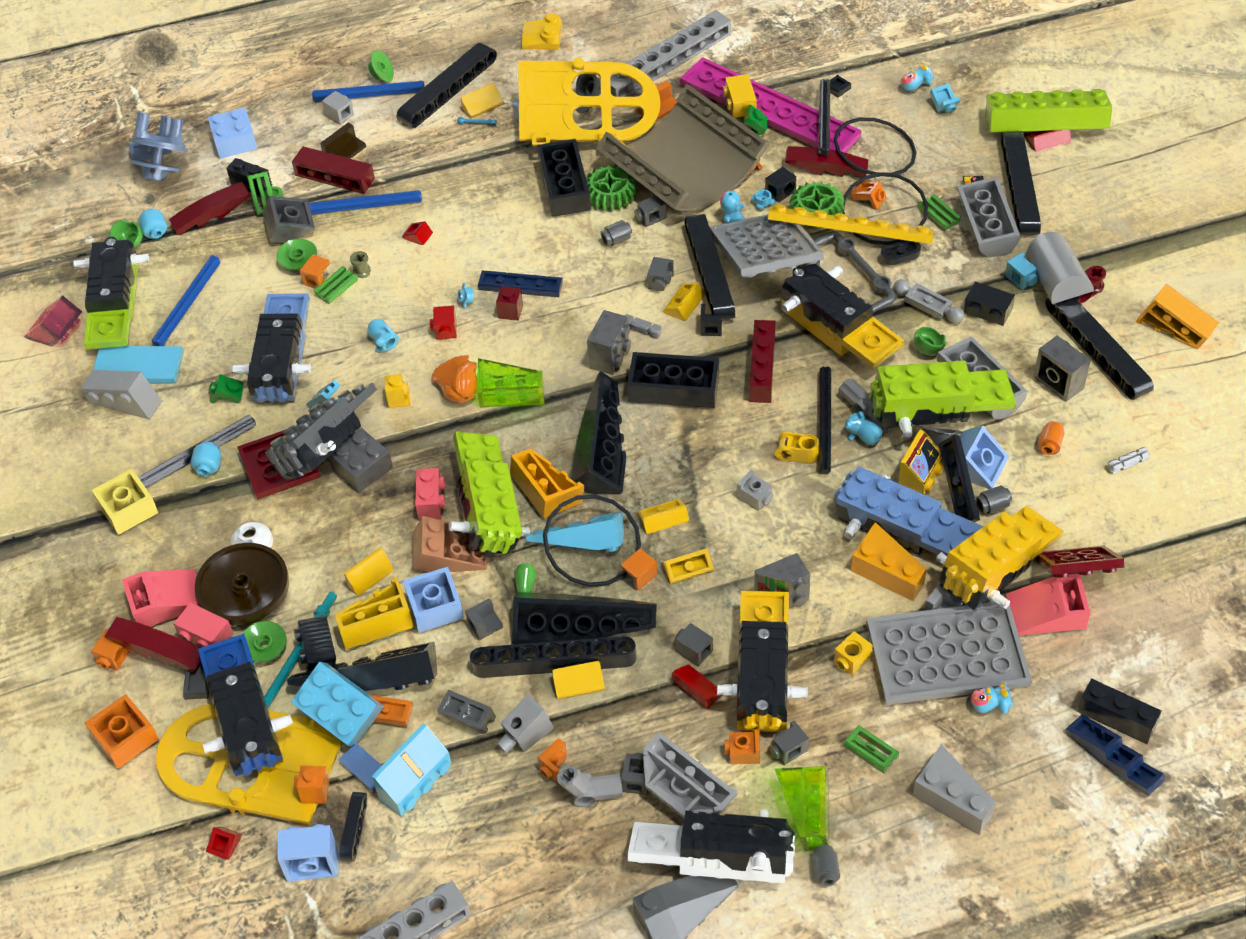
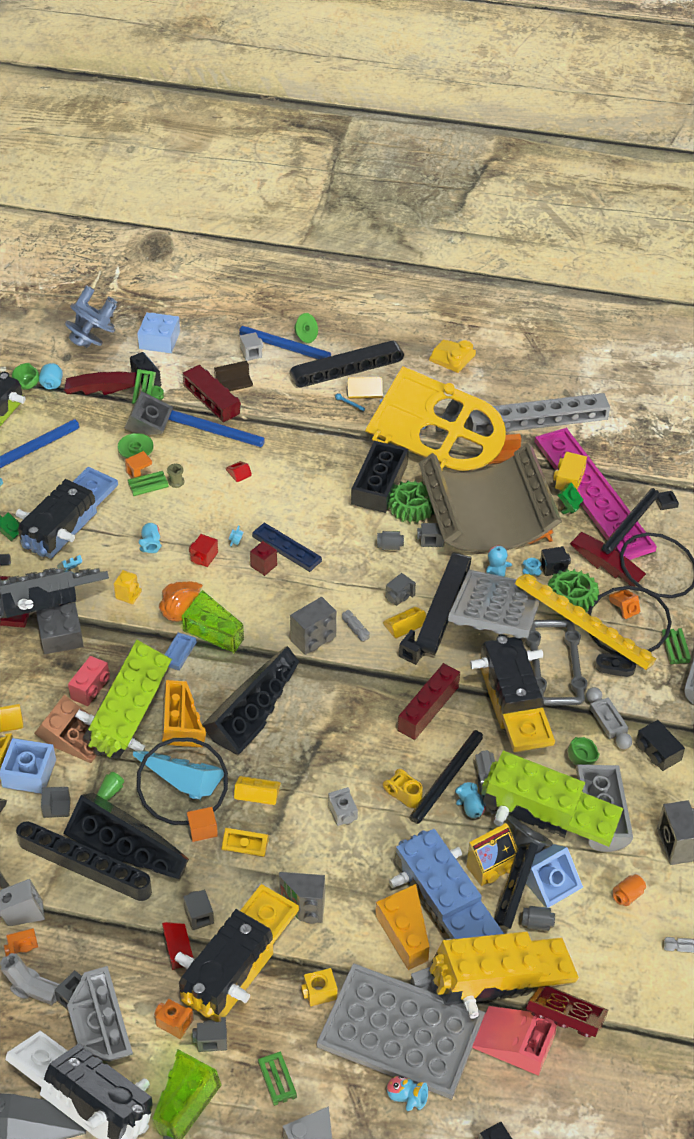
camera: 25 degrees right, 5 degrees down
(491, 423) = (180, 650): none -> medium blue tile
(578, 679) = (89, 890): yellow slope -> none
(673, 379) = (344, 681): black brick -> none

